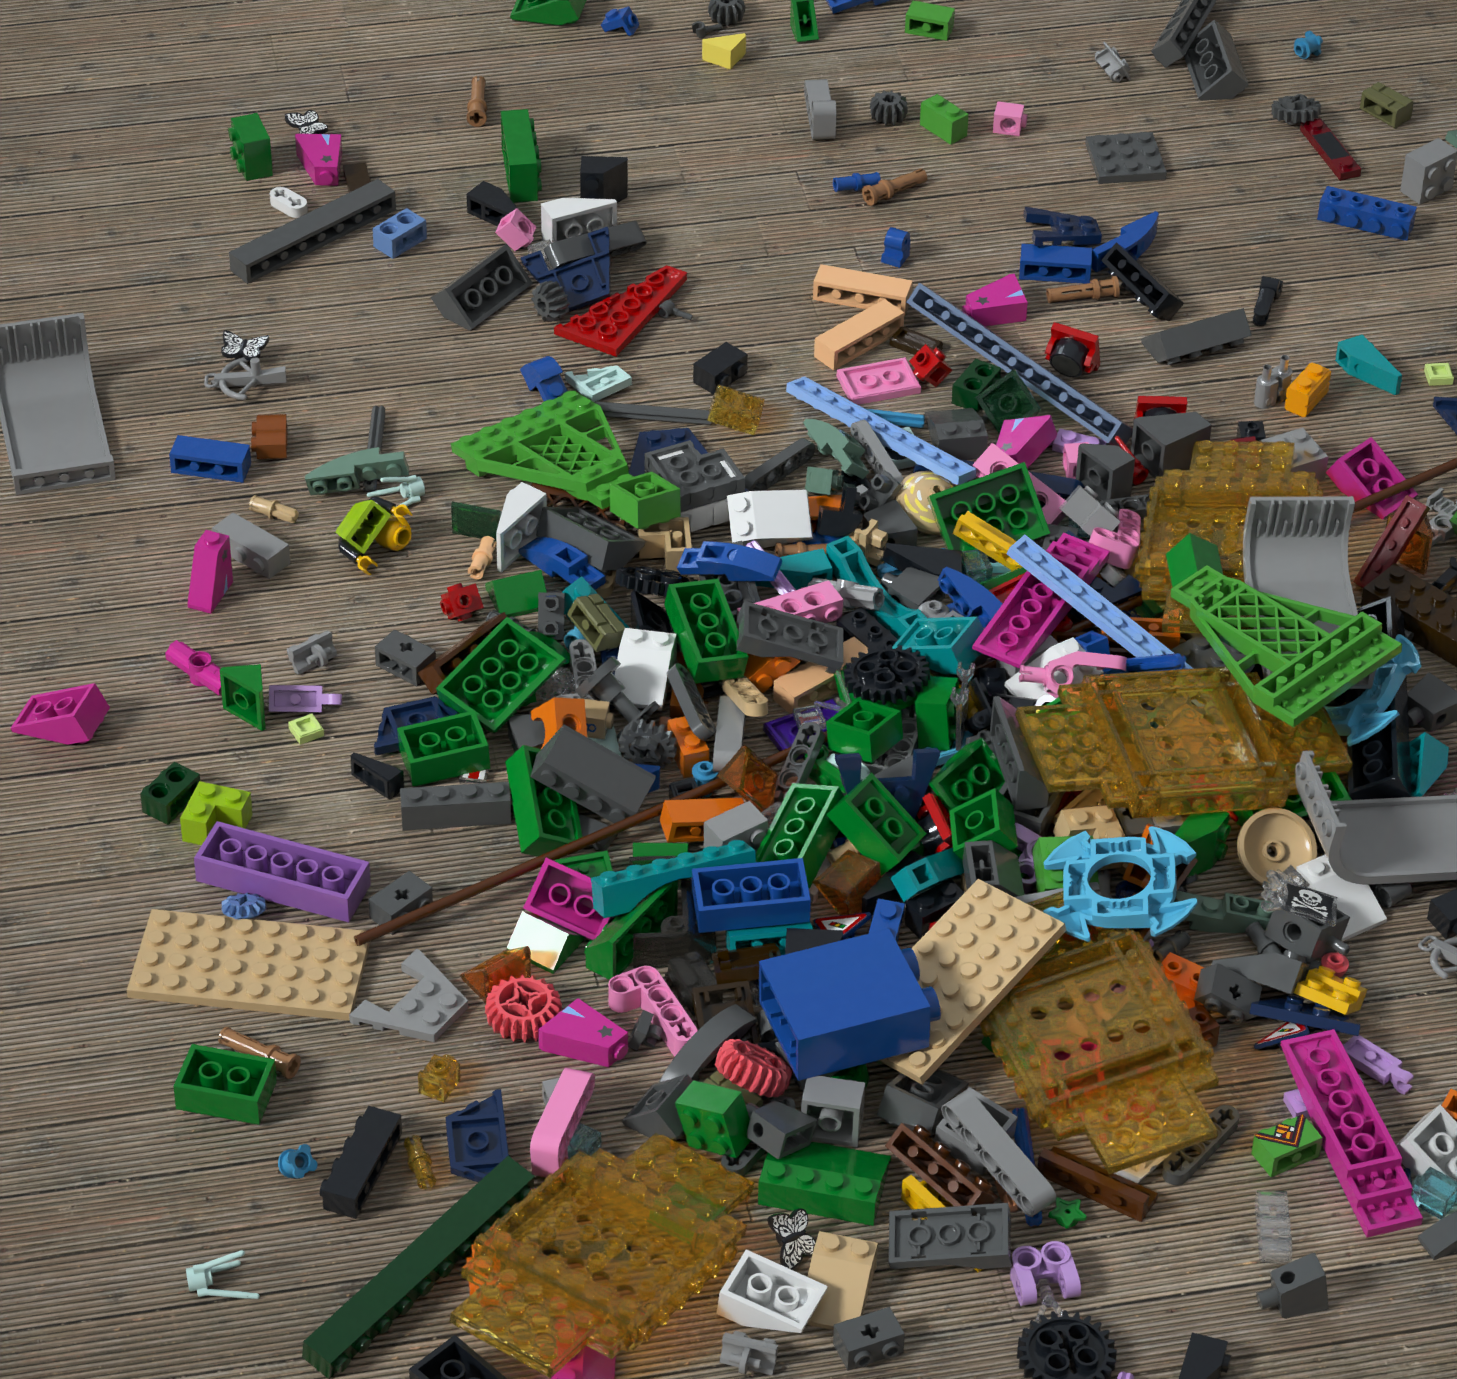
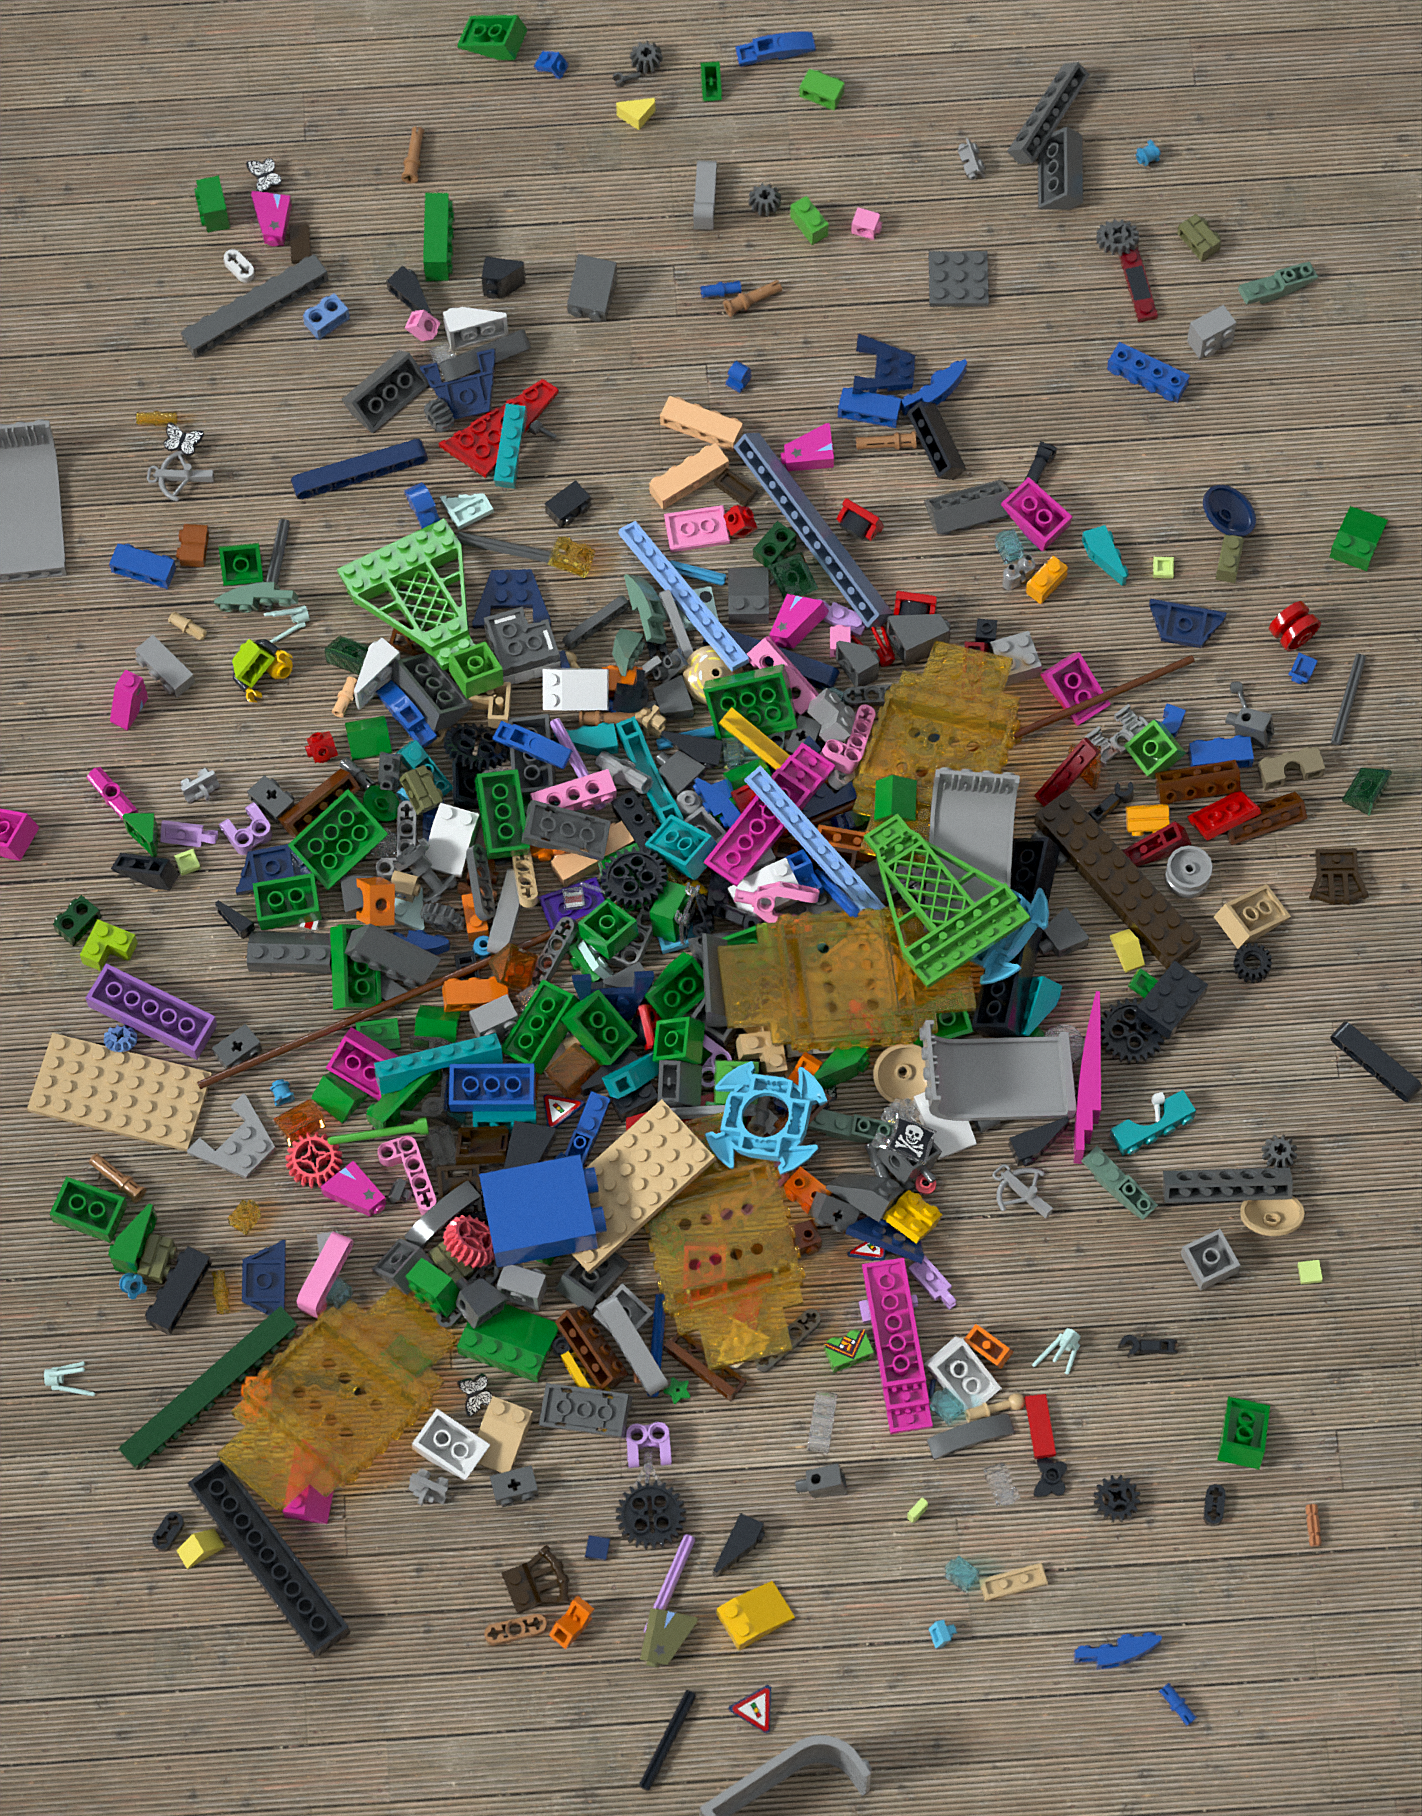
camera: 10 degrees right, 25 degrees up
(207, 332) = (156, 418): none -> clear yellow pin
(259, 736) = (150, 871): none -> black slope
(292, 1110) = (130, 1243): none -> green slope
(326, 1130) = (156, 1258): none -> olive brick
(330, 440) = (241, 564): none -> green slope
(389, 690) = (250, 833): none -> lavender piece
(462, 357) = (359, 469): none -> dark blue beam
(468, 943) = (281, 1092): none -> dark azure brick
(641, 319) = (509, 447): none -> teal arch
(661, 950) = (419, 1126): none -> bright green piece
(709, 184) = (592, 288): none -> dark grey slope
(895, 1177) = (557, 1346): none -> black plate
(1250, 364) = (1009, 546): none -> clear light blue brick
(1280, 331) = (1037, 514): none -> dark pink slope
(1431, 1312) = (916, 1512): none -> yellowish green tile

